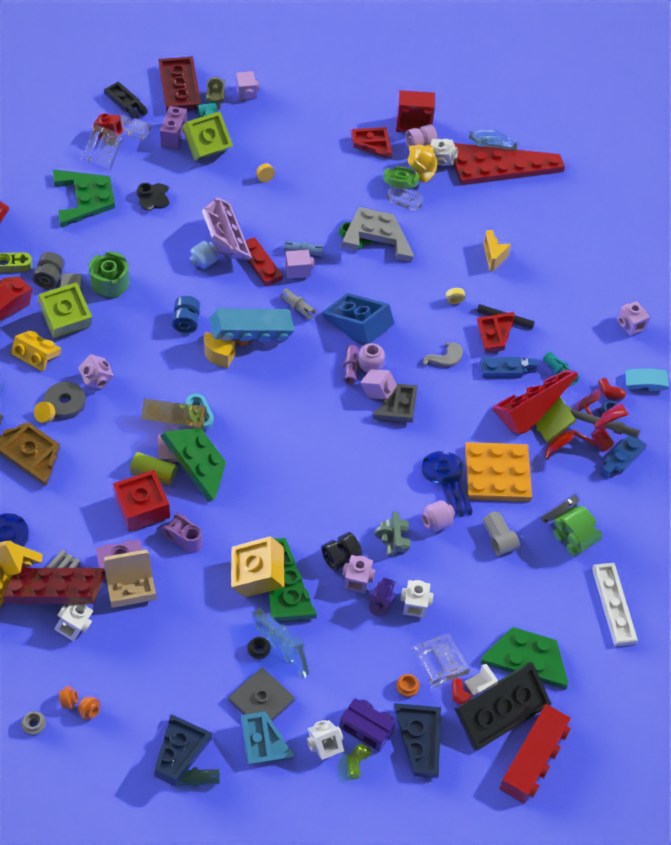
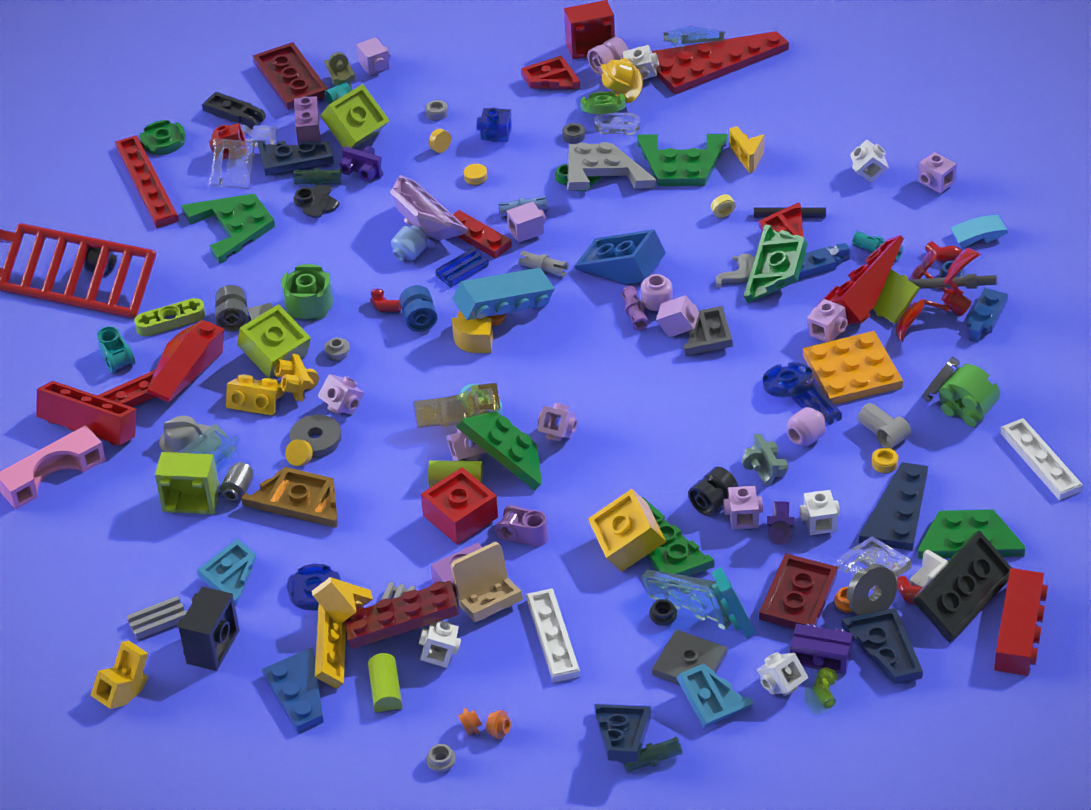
camera: 10 degrees left, 10 degrees down
(20, 639) = (384, 683): none -> lime brick
(37, 141) = (146, 181): none -> red tile
(65, 107) = (162, 137): none -> green tile
(72, 347) = (295, 376): none -> yellow hips
(113, 329) = (337, 348): none -> light grey plate
(150, 153) = (285, 158): none -> dark blue wing
(162, 176) = (317, 176): none -> pin
(163, 299) = (382, 304): none -> red arm
(166, 639) = (553, 635): none -> white tile
(200, 173) = (363, 162): none -> dark purple hips
(235, 285) = (460, 266): none -> clear blue tile
(247, 449) = (549, 419): none -> lavender brick
(275, 145) = (436, 110): none -> light grey tile
(280, 209) = (475, 174): none -> yellow tile
(311, 172) = (495, 124): none -> clear blue brick
(311, 662) = (731, 603): none -> wing
(369, 196) = (573, 133): none -> dark grey tile
(371, 666) = (798, 592): none -> dark red plate
(437, 690) = (863, 581): none -> dark grey tile
(441, 250) = (681, 166): none -> green wing
(474, 360) = (775, 263): none -> green wing
(481, 615) = (899, 509): none -> dark blue wing
(489, 564) = (884, 460): none -> yellow tile
(493, 425) = (827, 321): none -> lavender brick
(584, 291) = (869, 160): none -> brick

